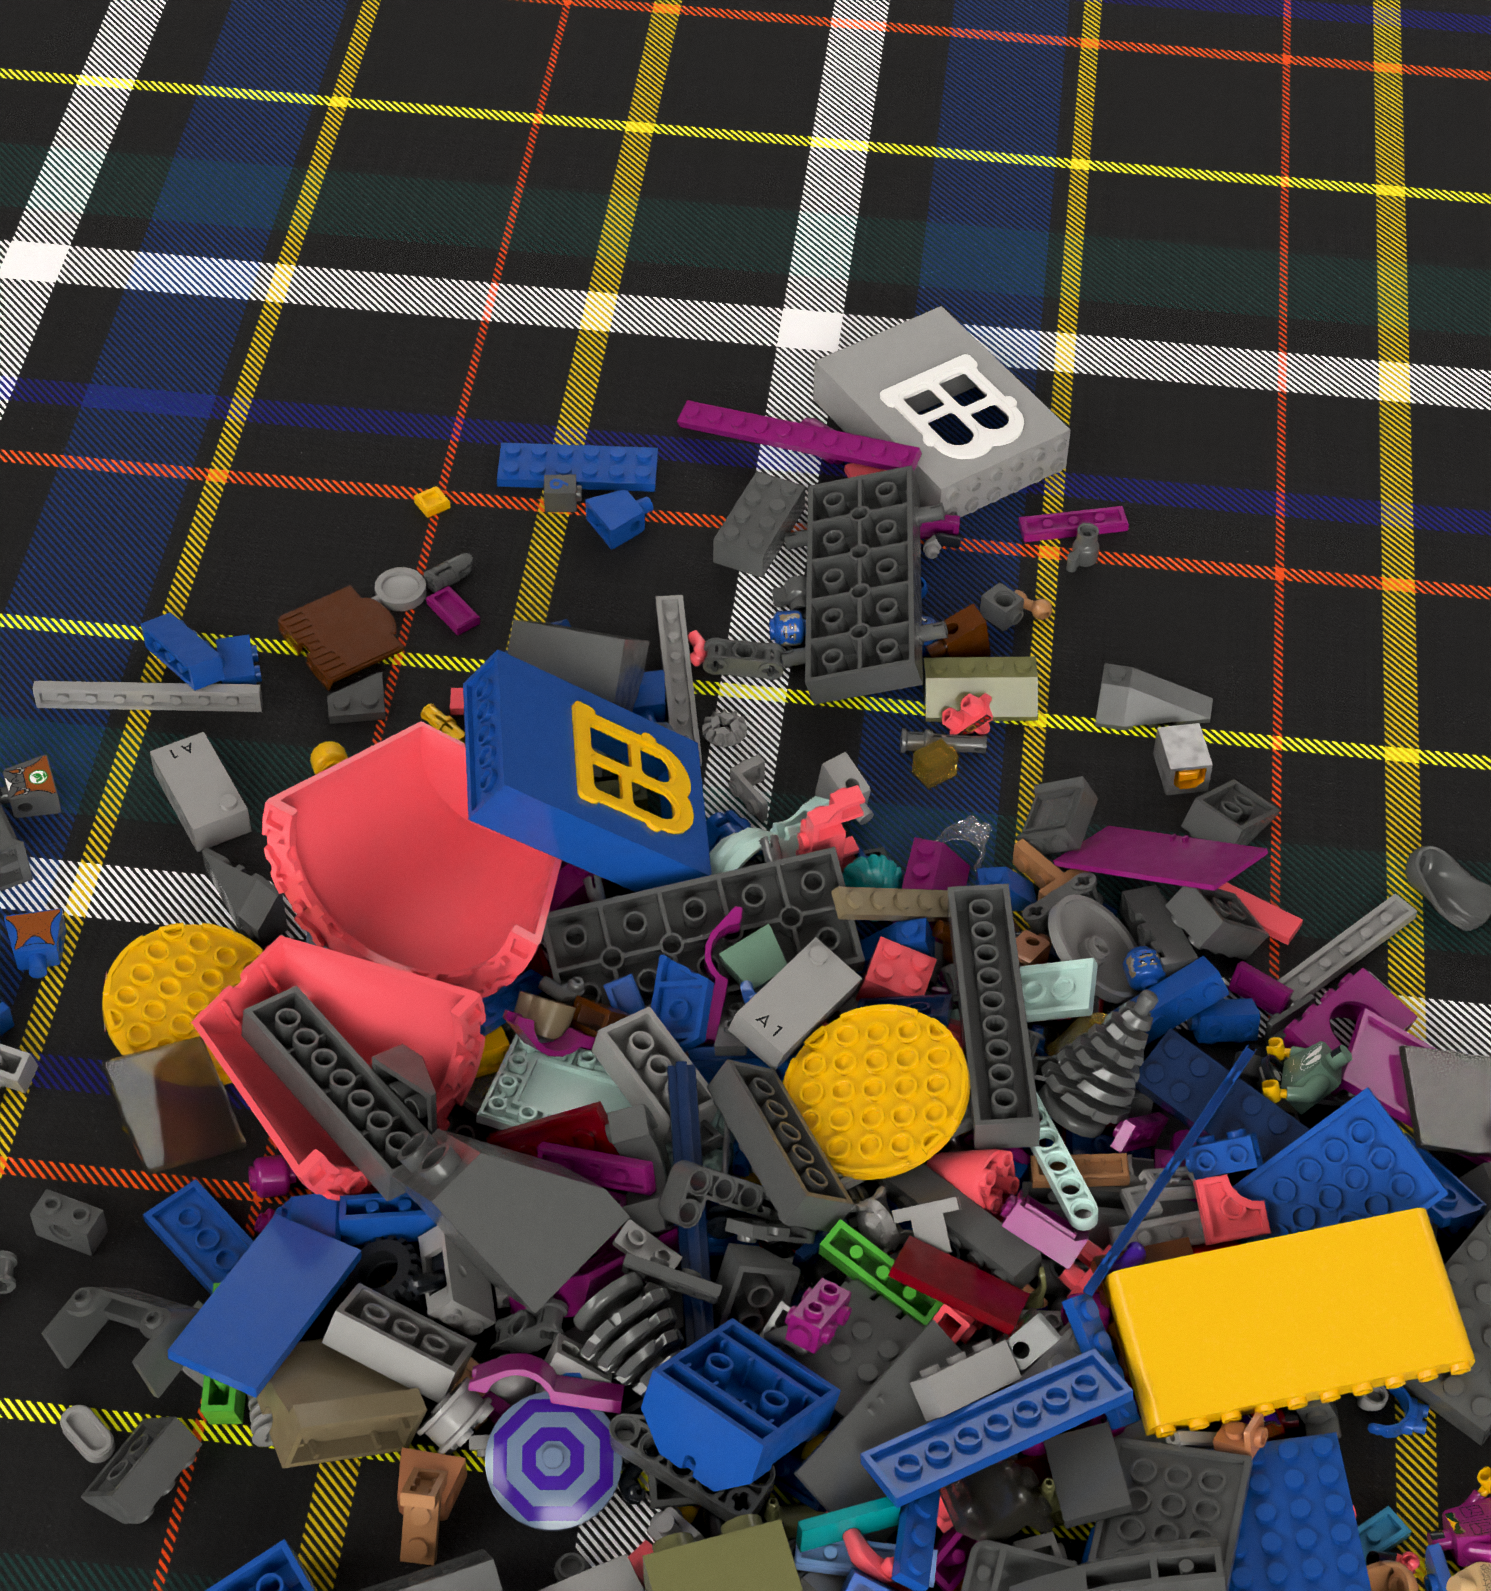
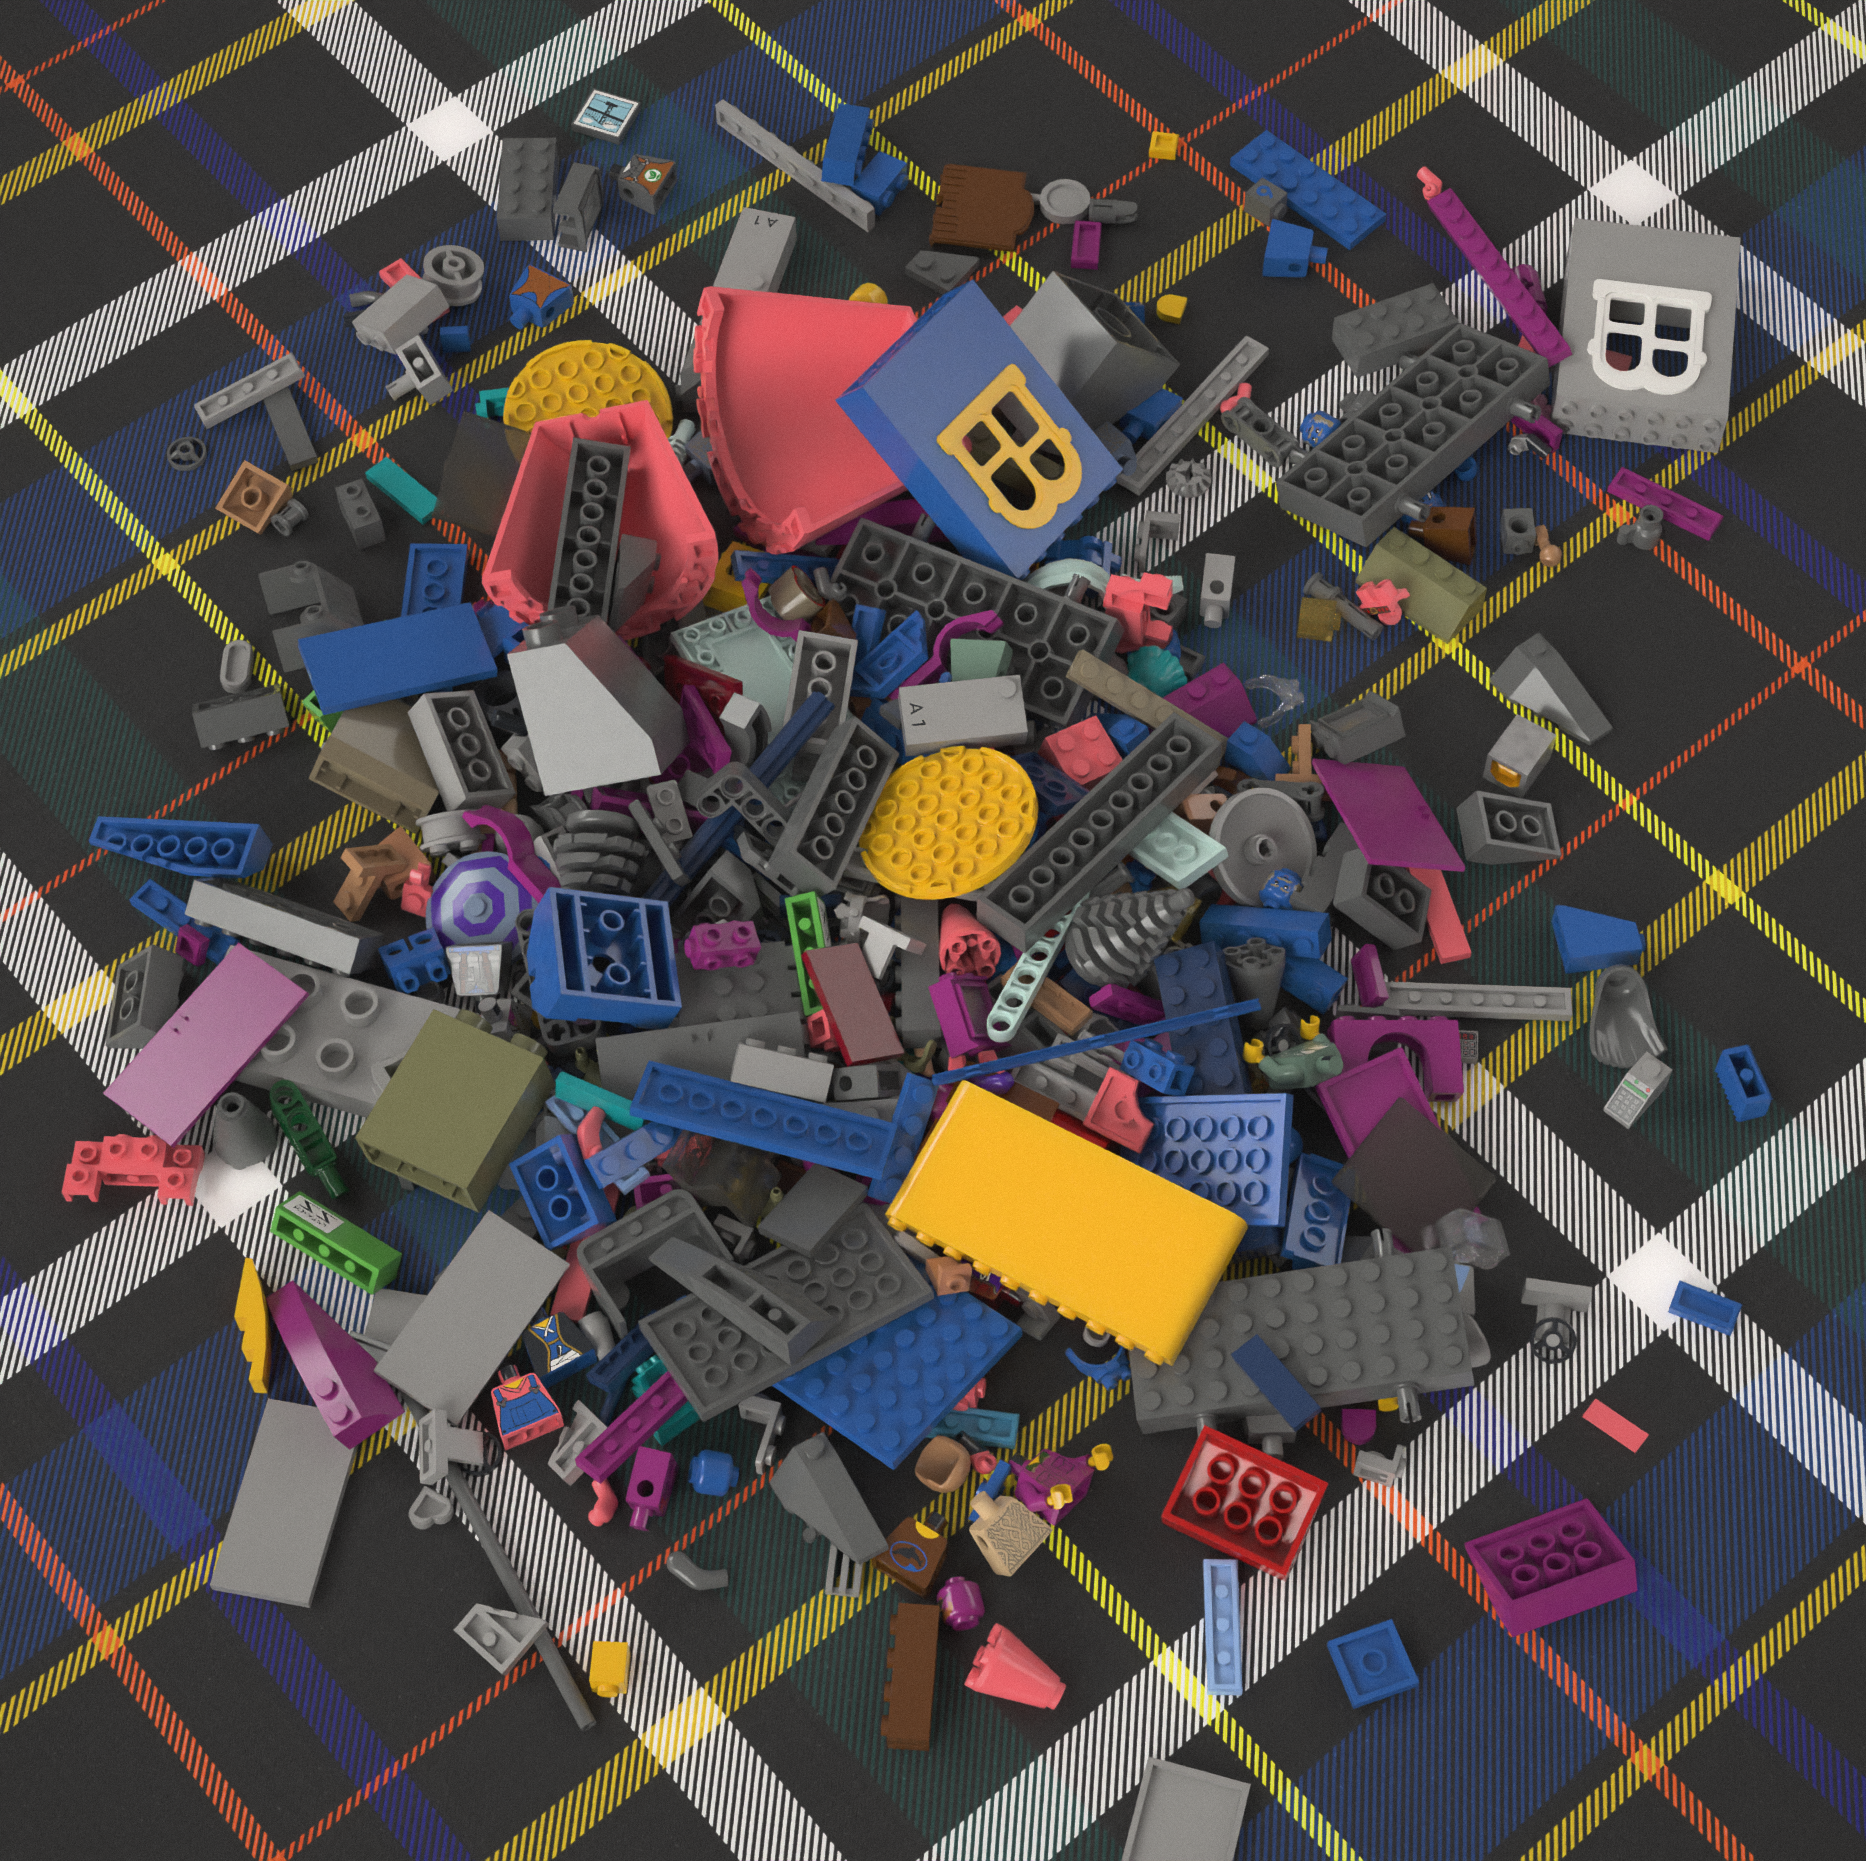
camera: 45 degrees right, 10 degrees up
(83, 1177) = (402, 489): none -> teal tile
(91, 1049) = (491, 402): none -> teal bracket
(475, 1493) = (417, 891): none -> coral plate
(540, 1551) = (418, 966): none -> blue hips
(574, 613) = (1171, 308): none -> yellow tile
(605, 1509) = (480, 968): none -> torso
(666, 407) = (1432, 183): none -> coral arm
(1202, 1028) = (1256, 973): none -> dark grey cone
(1369, 849) = (1595, 940): none -> blue slope

